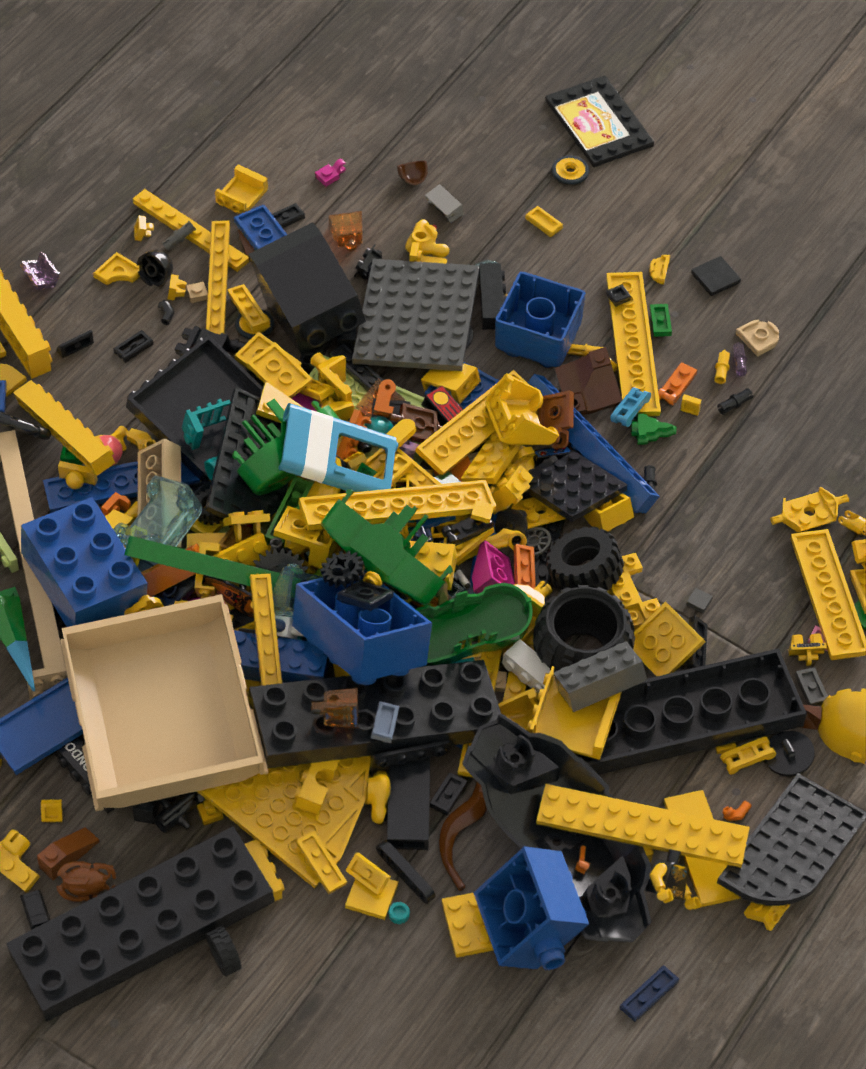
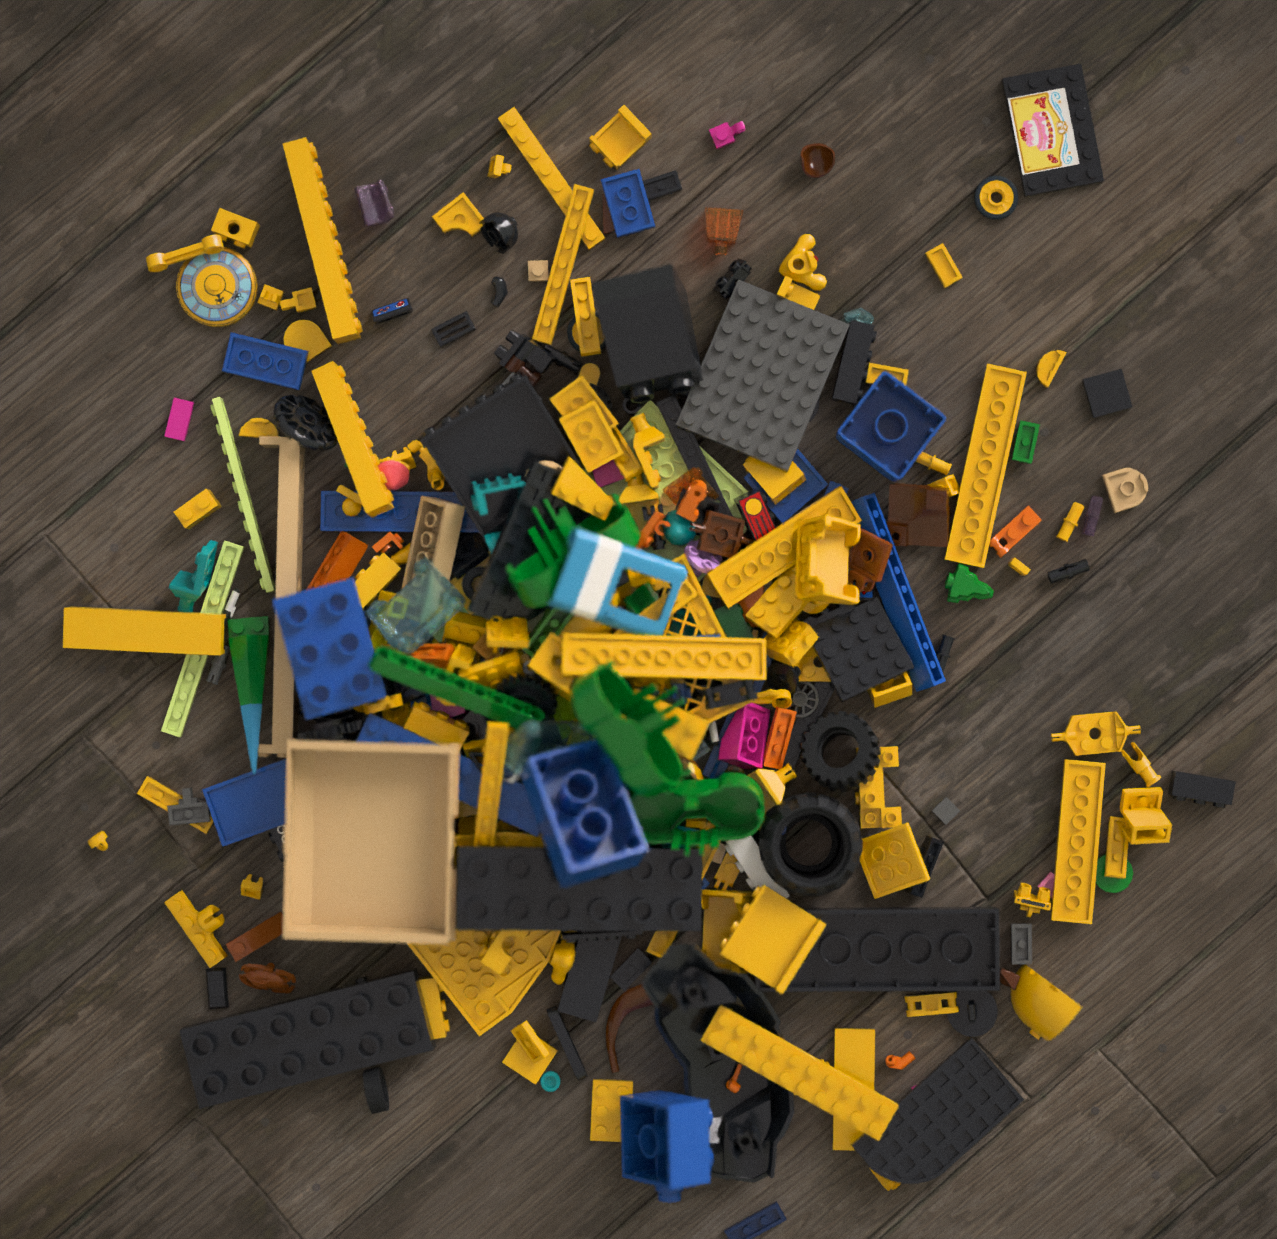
camera: 20 degrees right, 35 degrees up
(175, 288) = (515, 257): yellow tile -> none
(178, 235) = (535, 190): dark grey pin -> none
(321, 862) = (489, 1020): yellow plate -> none
(339, 708) = (543, 906): clear orange torso -> none
(342, 569) = (569, 755): black gear -> none
(365, 595) = (592, 791): black tile -> none
(373, 578) = (606, 768): yellow plate -> none
(385, 722) = (579, 919): sand blue tile -> none
(403, 431) = (695, 553): yellow tile -> none
(445, 202) = (839, 215): light grey hinge -> none
(482, 511) = (748, 687): yellow tile -> none
(600, 676) = (806, 915): dark grey brick -> none
(618, 295) = (989, 401): black tile -> none
(630, 406) = (952, 559): dark azure plate -> none
(669, 881) = (805, 1131): torso -> none

